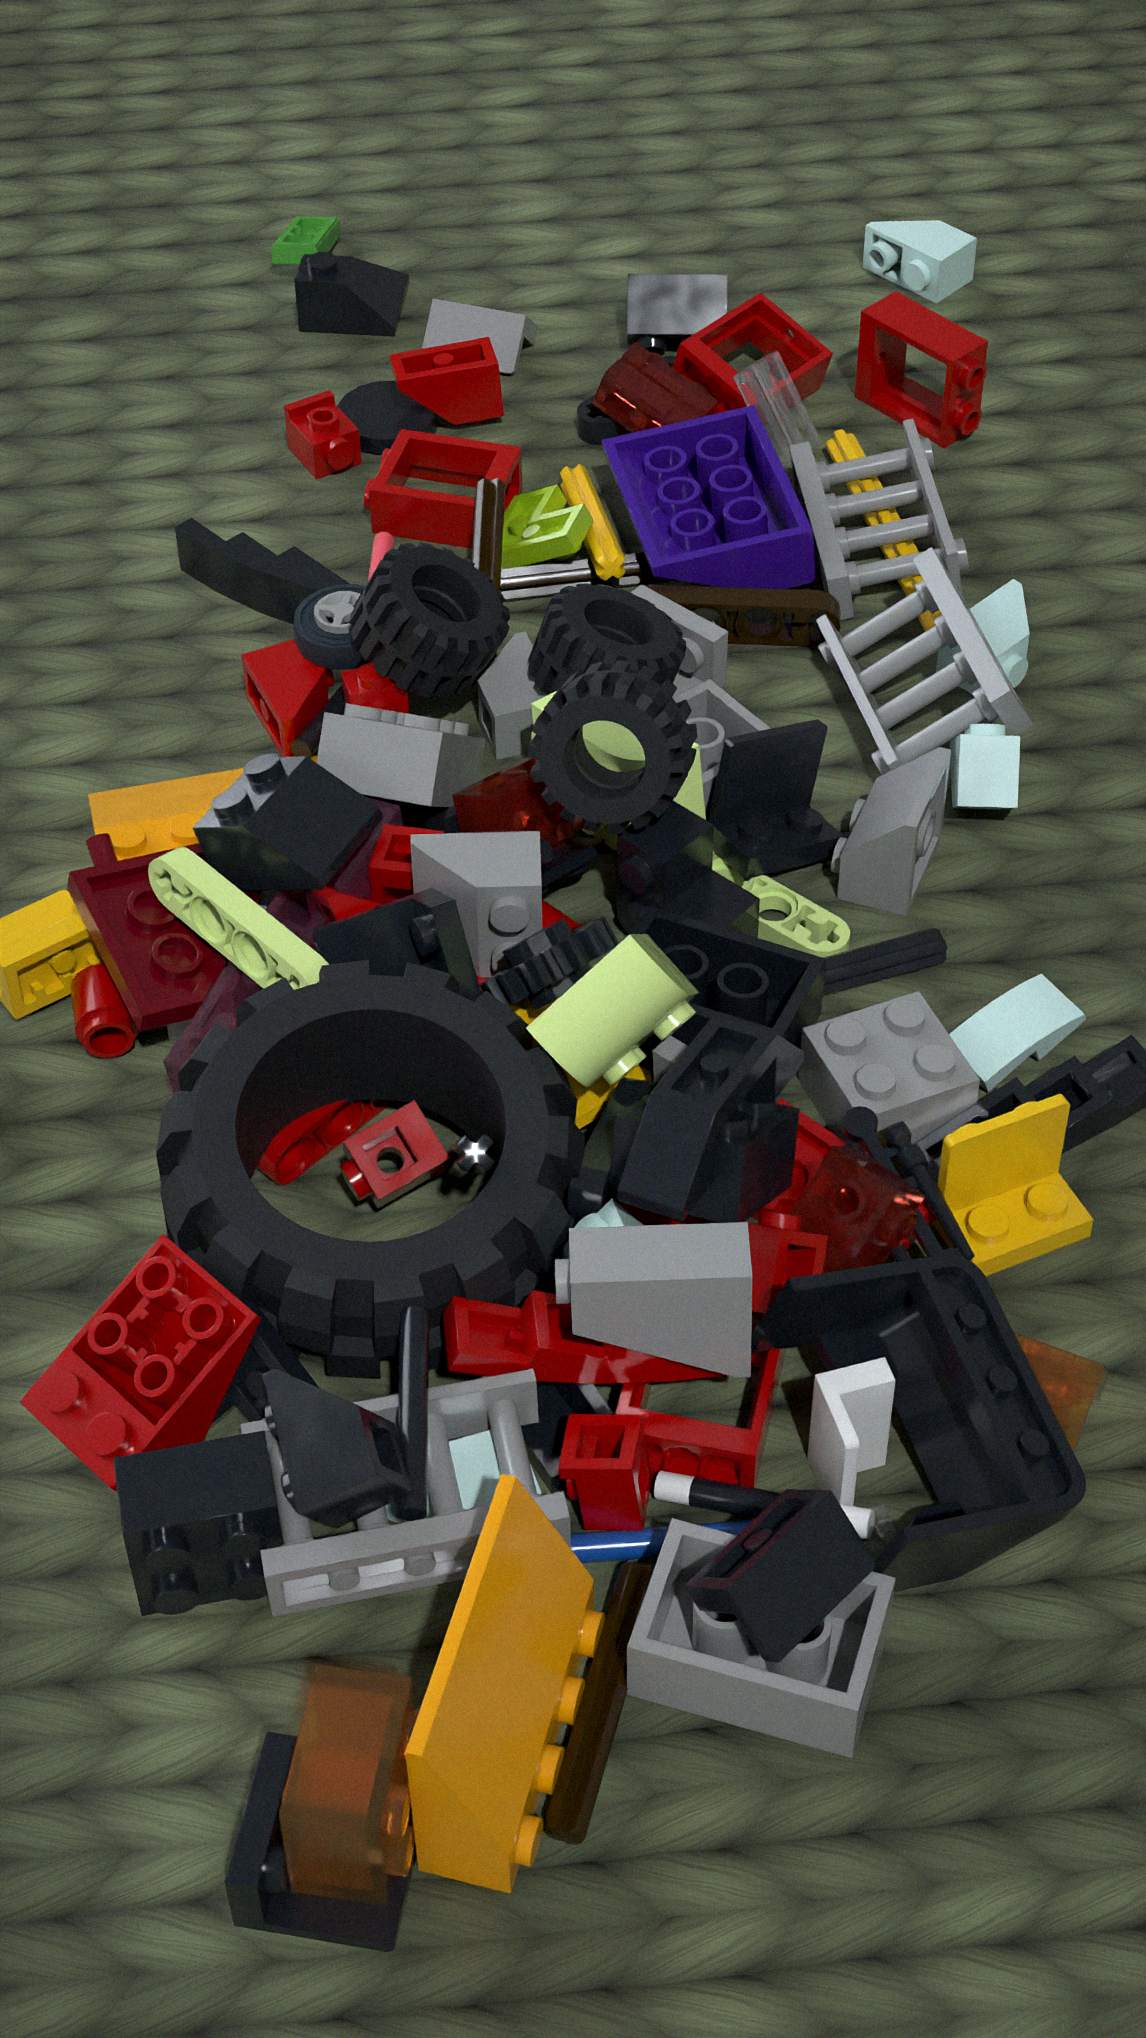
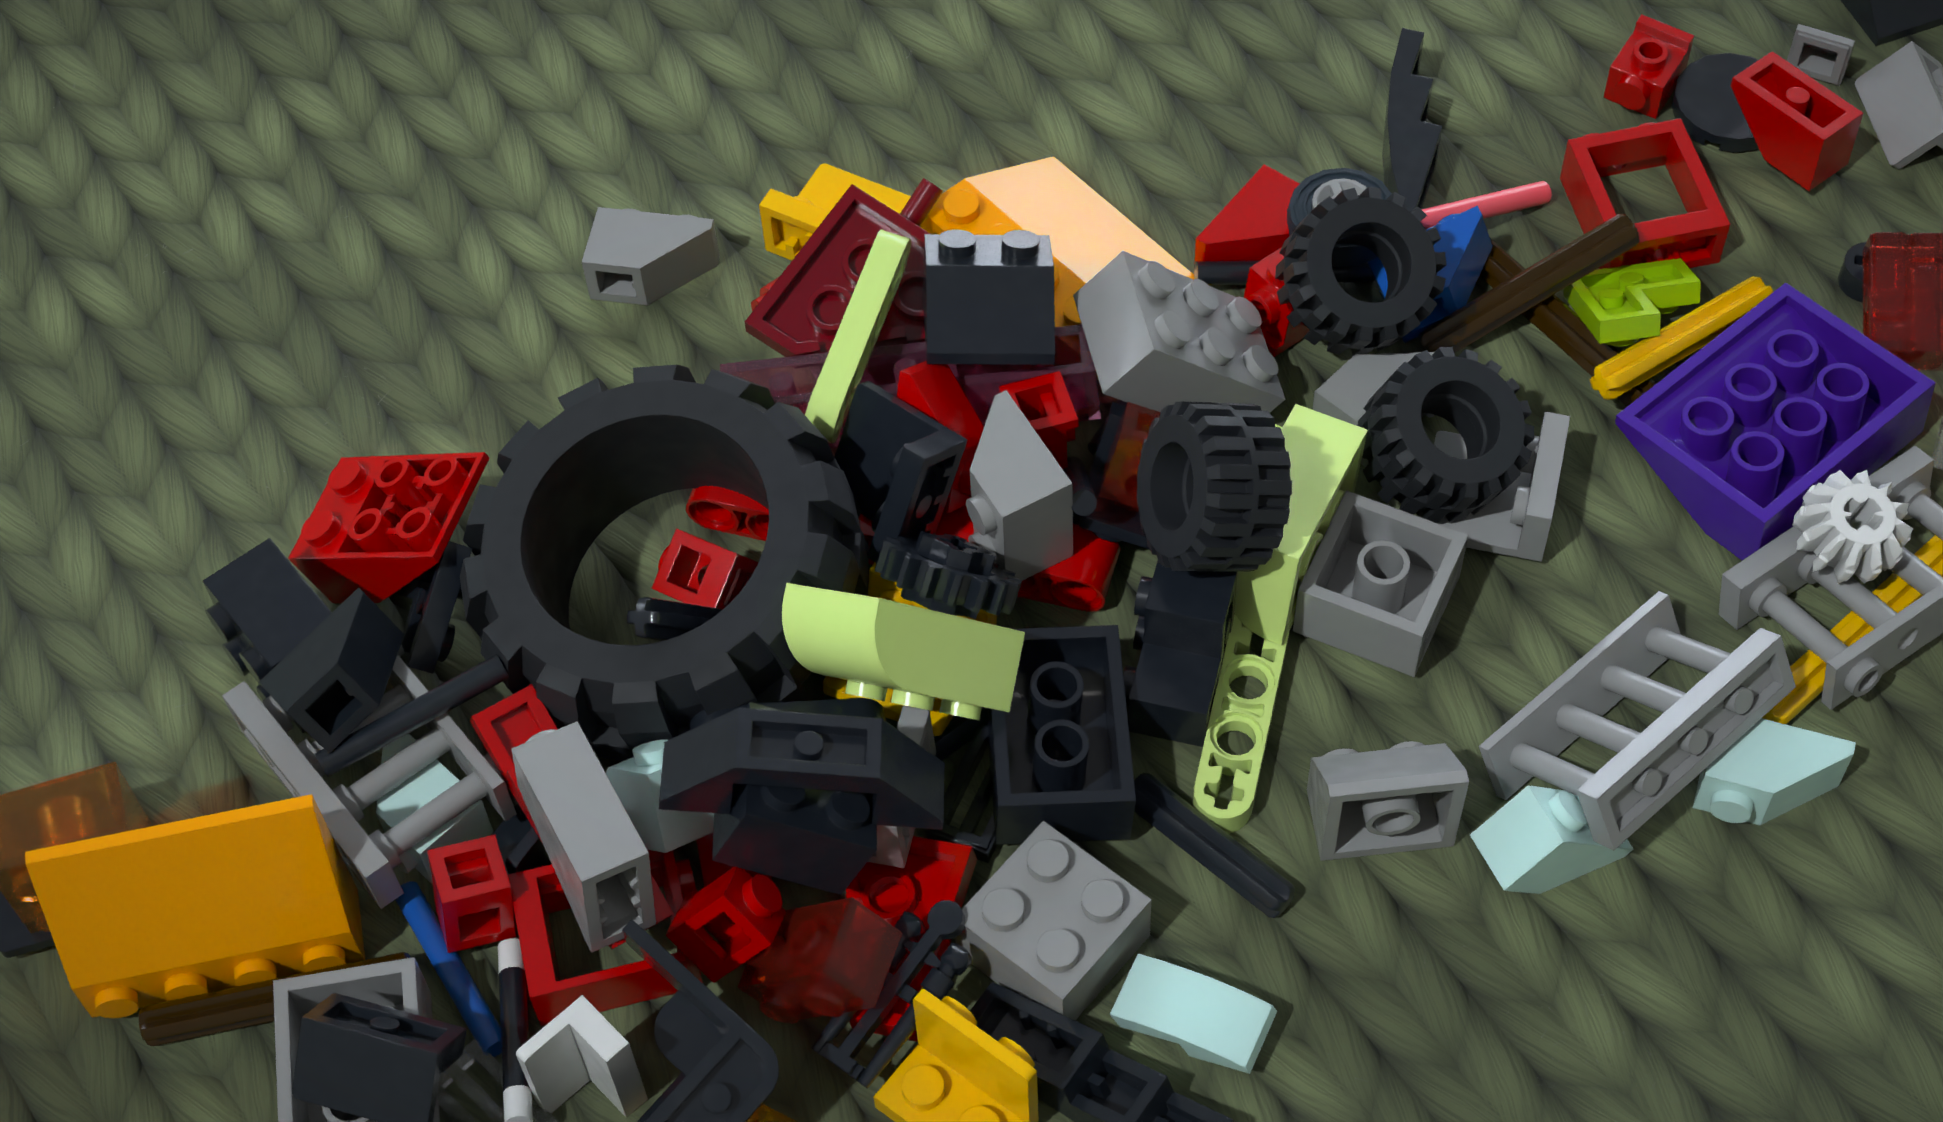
camera: 65 degrees right, 10 degrees up
(374, 358) = (1820, 54): none -> light grey slope
(736, 603) = (1637, 521): dark brown beam -> none
(765, 801) = (1345, 669): black bracket -> none
(848, 490) = (1876, 530): none -> white gear

